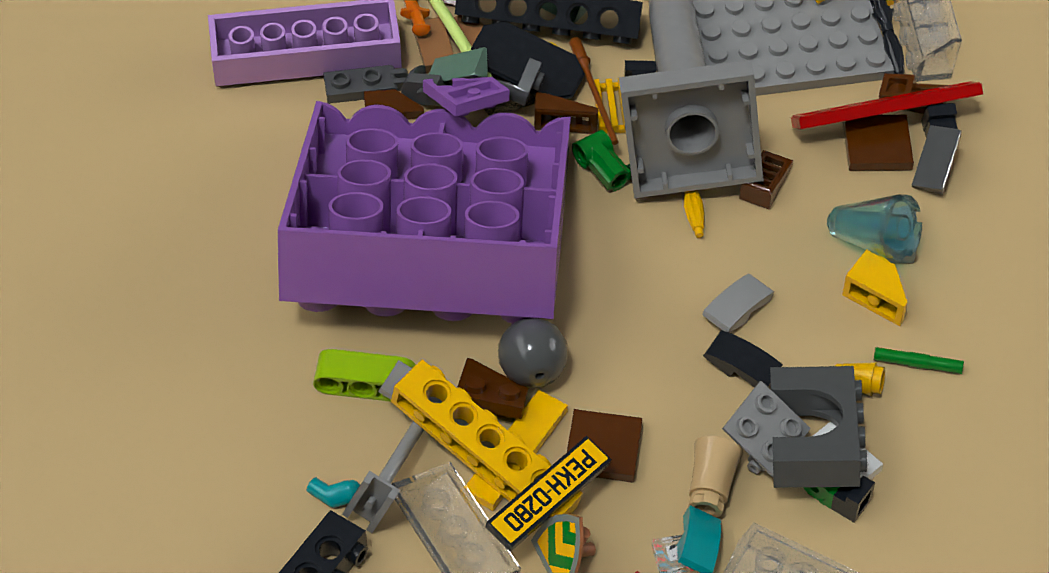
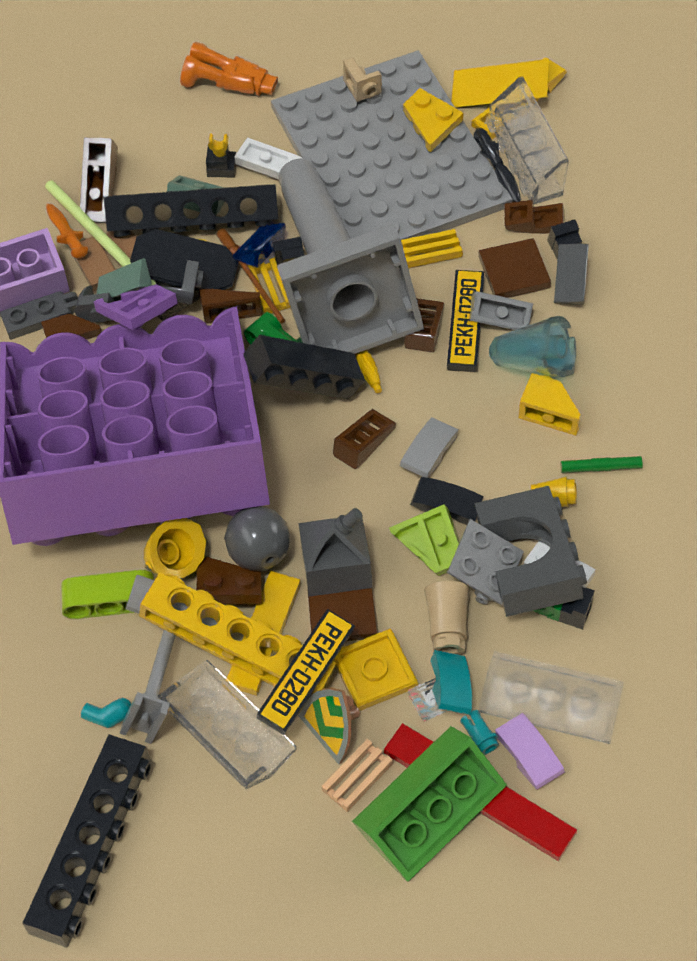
camera: 10 degrees left, 5 degrees up
(446, 342) = (175, 548): none -> yellow piece
(610, 385) = (336, 554): none -> dark grey piece
(612, 61) = (259, 244): none -> clear blue slope
(622, 512) = (375, 670): none -> yellow tile
(624, 191) = (303, 367): none -> black brick
(656, 292) = (352, 452): none -> reddish brown slope
(714, 392) = (430, 538): none -> lime wing
(776, 99) = (429, 245): none -> yellow tile
(811, 184) = (463, 332): none -> tile
(849, 180) = (500, 311): none -> light grey slope
(886, 105) = (514, 234): red tile -> none

